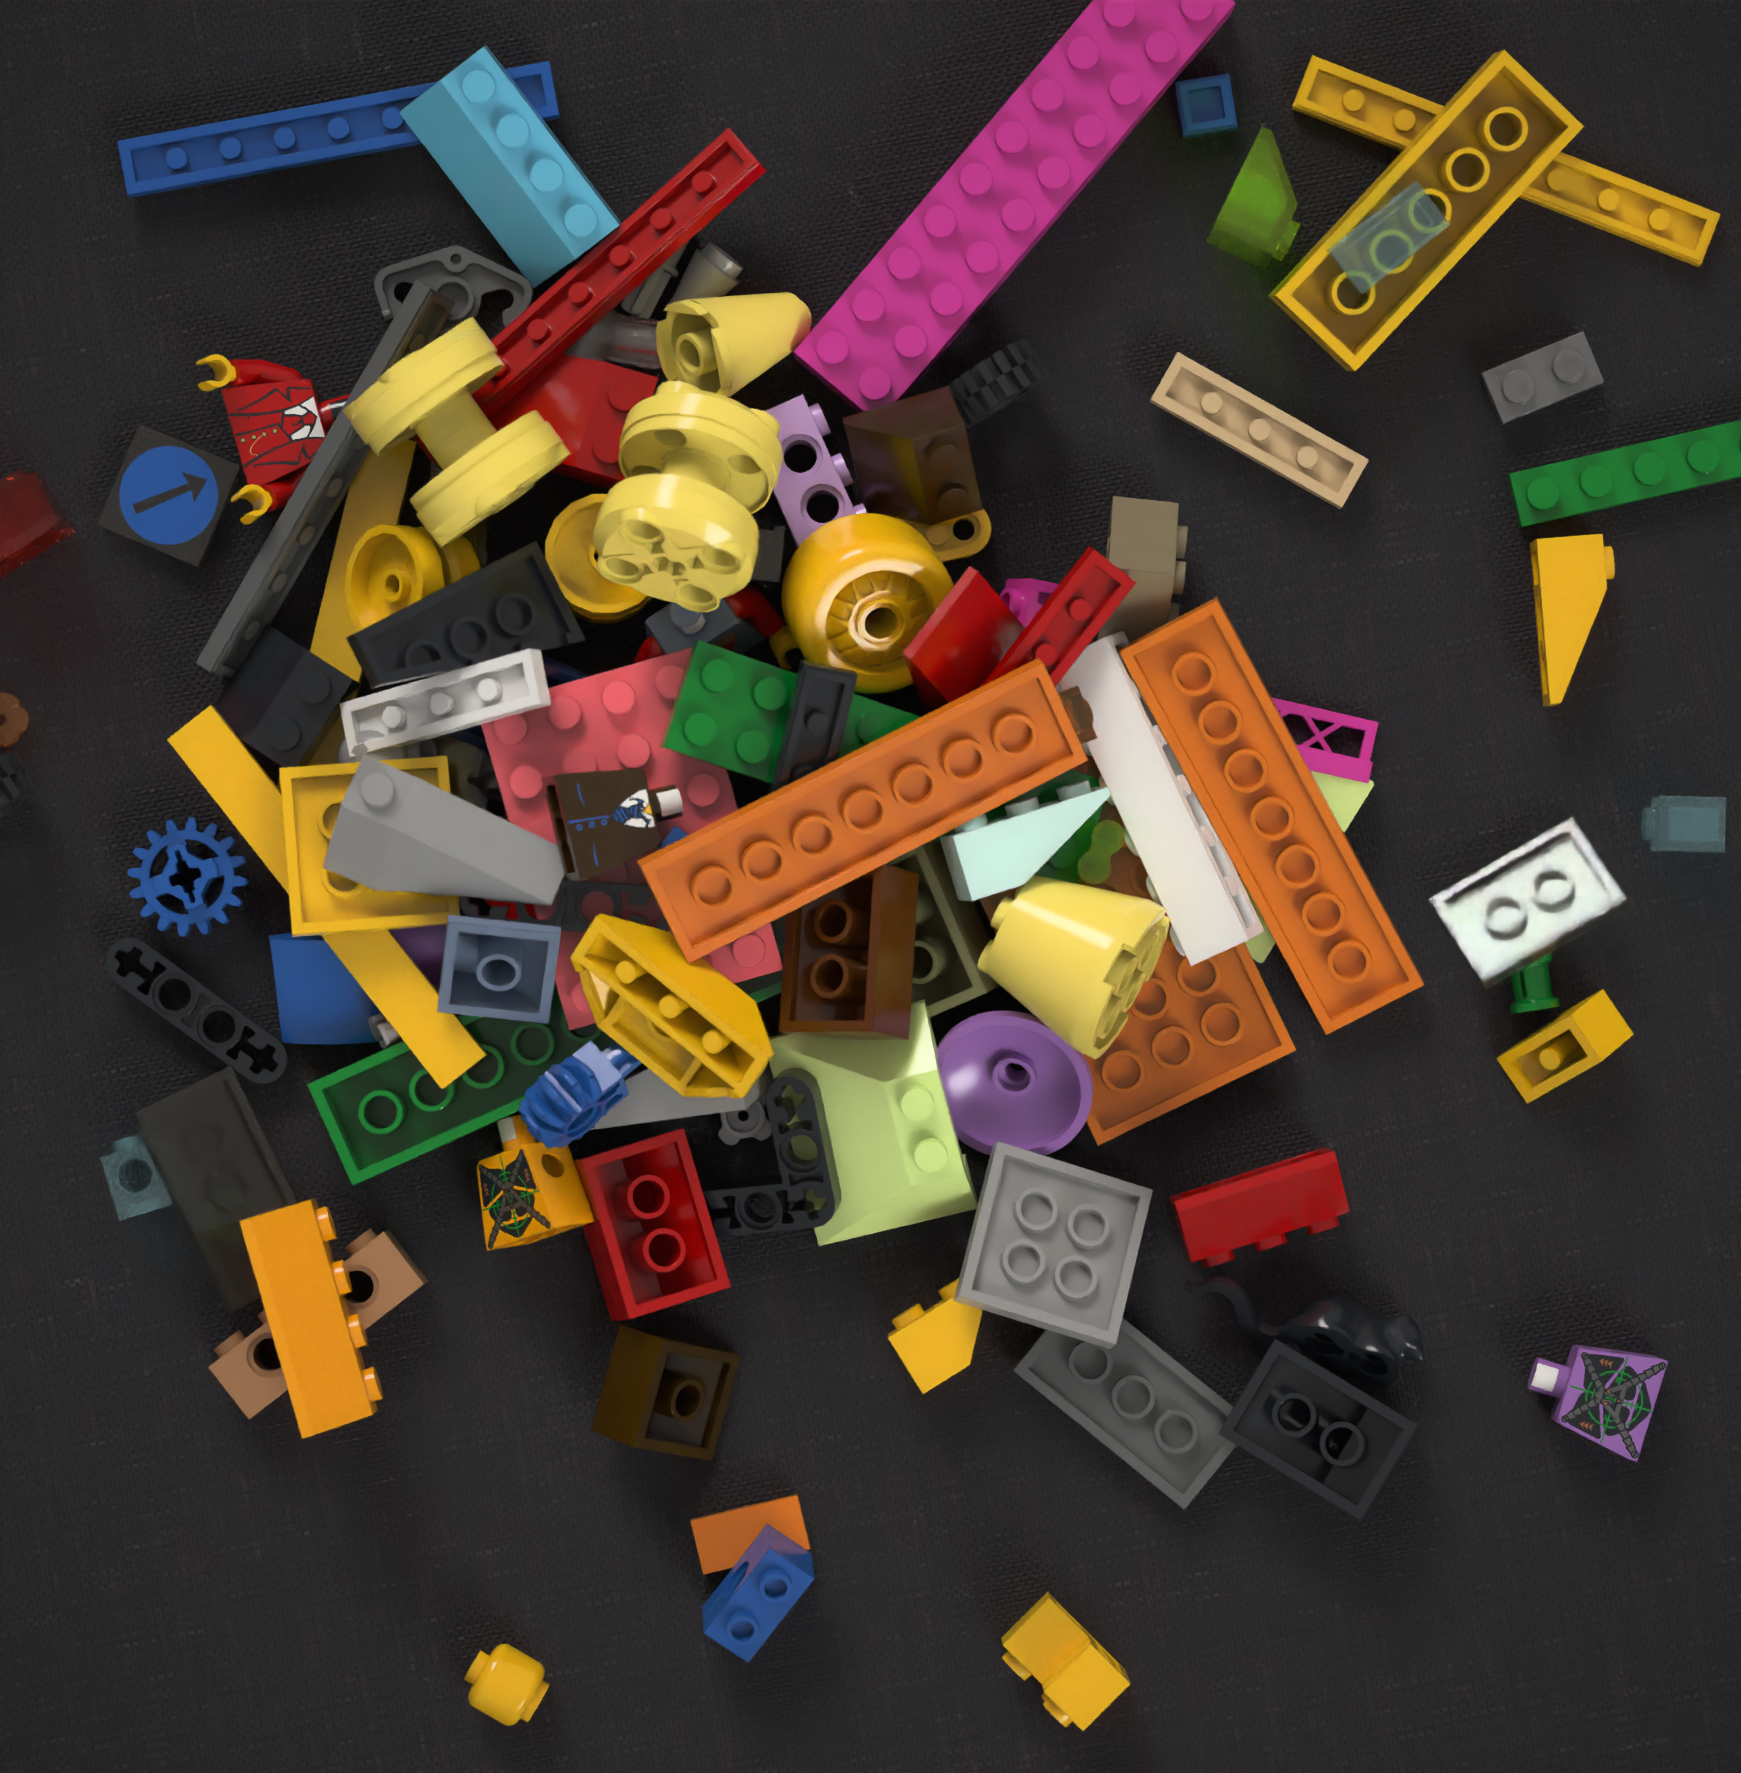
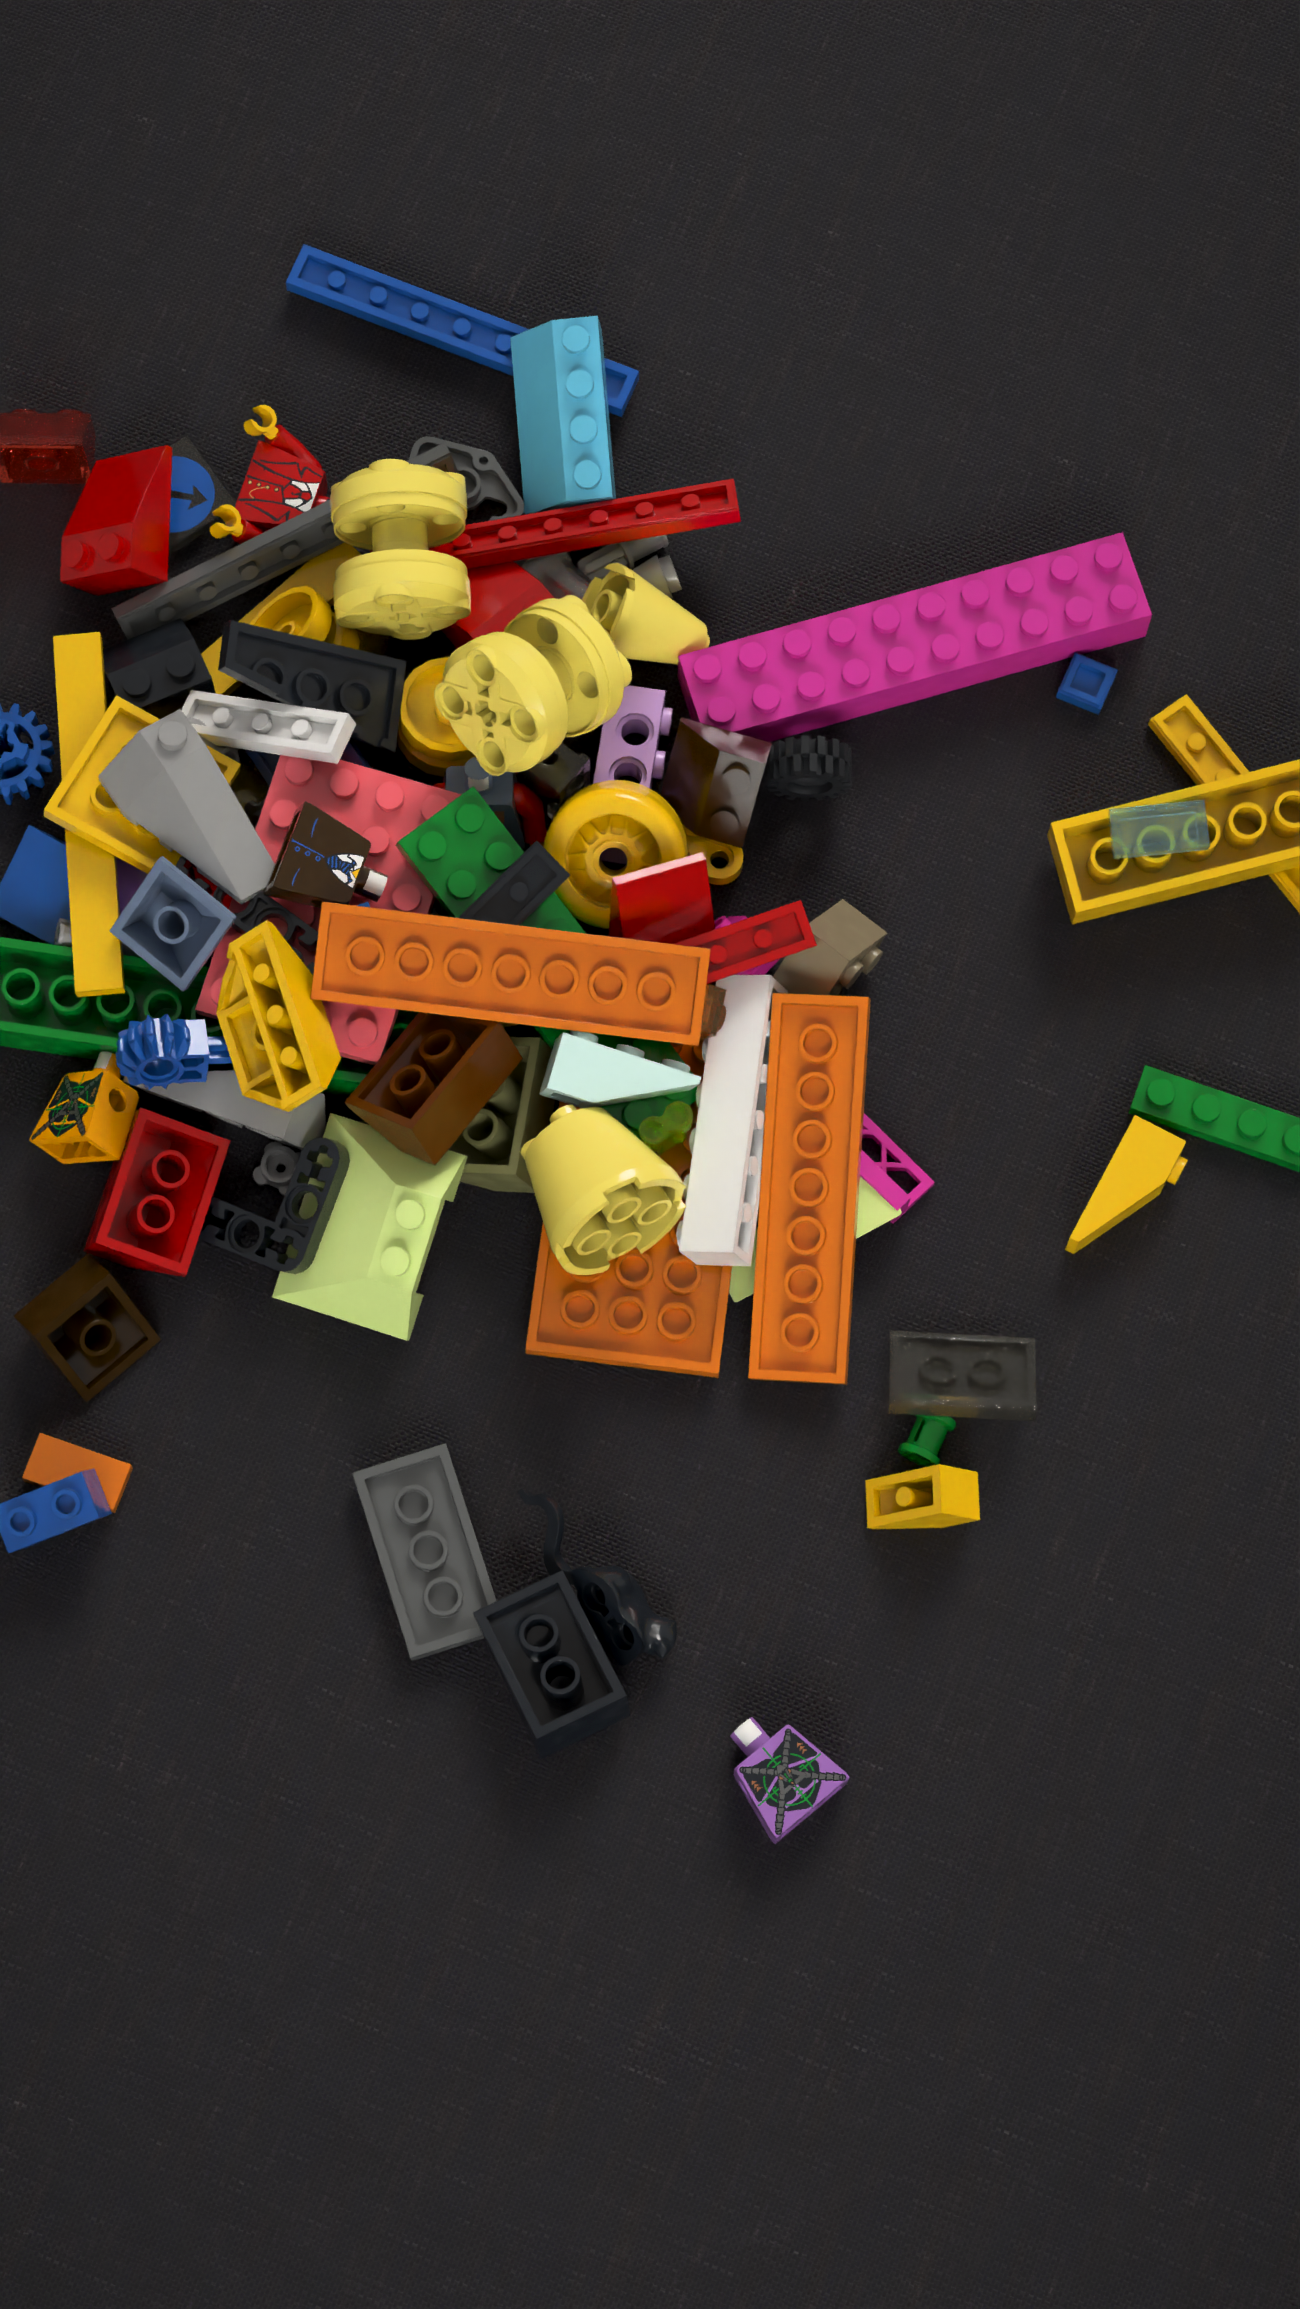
camera: 30 degrees right, 15 degrees down
(142, 565) = (120, 525): none -> red slope
(937, 1340) = (318, 1416): yellow slope -> none
(1024, 1108) = (467, 1268): medium lavender dish -> none
(1053, 1245) = (443, 1396): light grey plate -> none
(1067, 1660) = (243, 1712): yellow brick -> none
(1259, 208) = (1073, 760): clear neon green slope -> none
(1259, 430) = (980, 923): tan plate -> none
(1260, 1207) = (615, 1465): red slope -> none
(1541, 378) = (1212, 1016): flat silver plate -> none
(1685, 824) = (1116, 1394): clear light blue brick -> none

